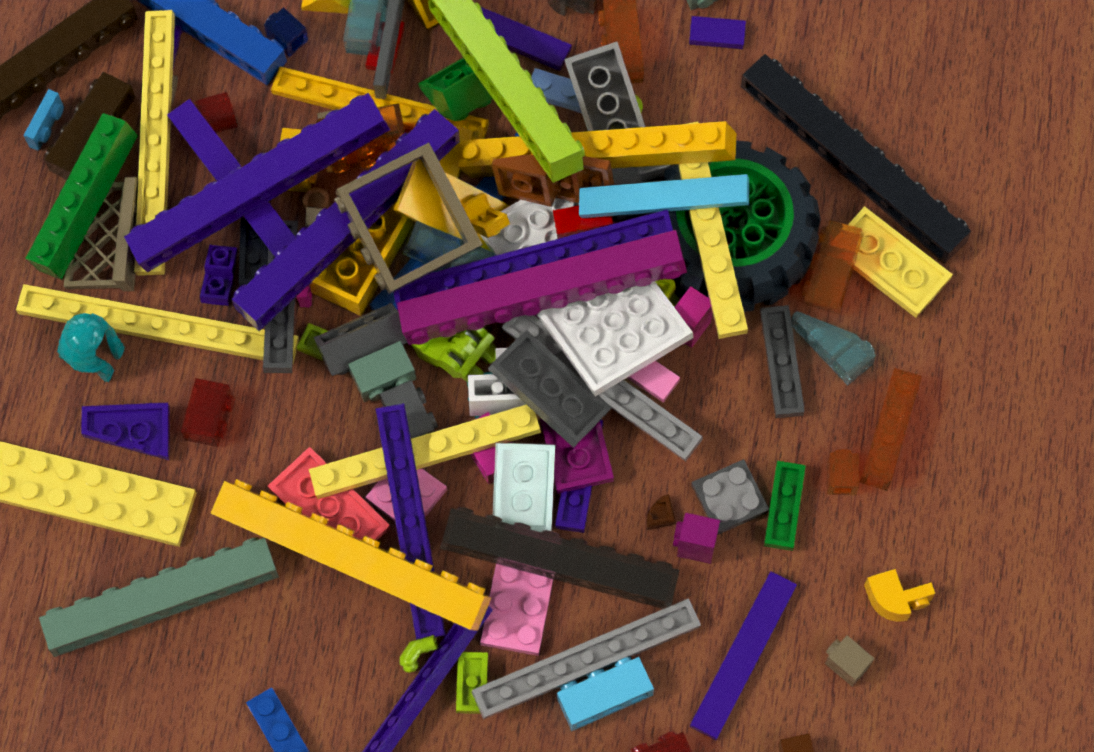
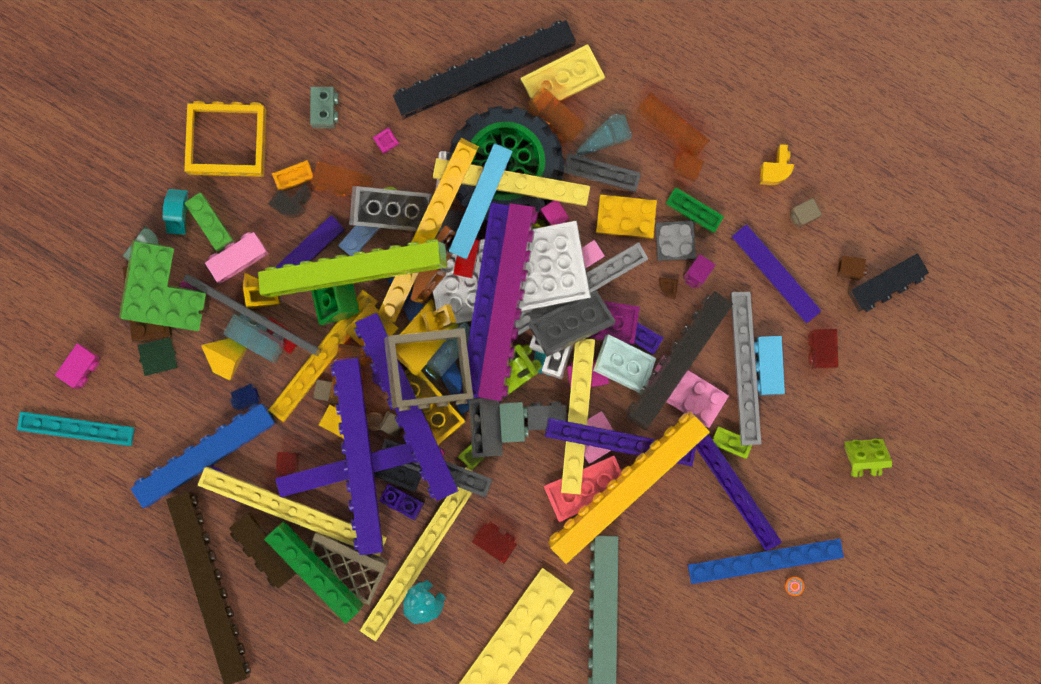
camera: 70 degrees left, 15 degrees up
(44, 118) = (251, 584): dark azure plate -> none
(130, 426) = (484, 593): dark purple wing -> none
(414, 649) = (697, 469): lime arm -> none
(702, 75) = (386, 140): none -> dark pink tile
(717, 32) = (359, 118): dark purple tile -> none
(735, 419) = (626, 216): none -> yellow plate

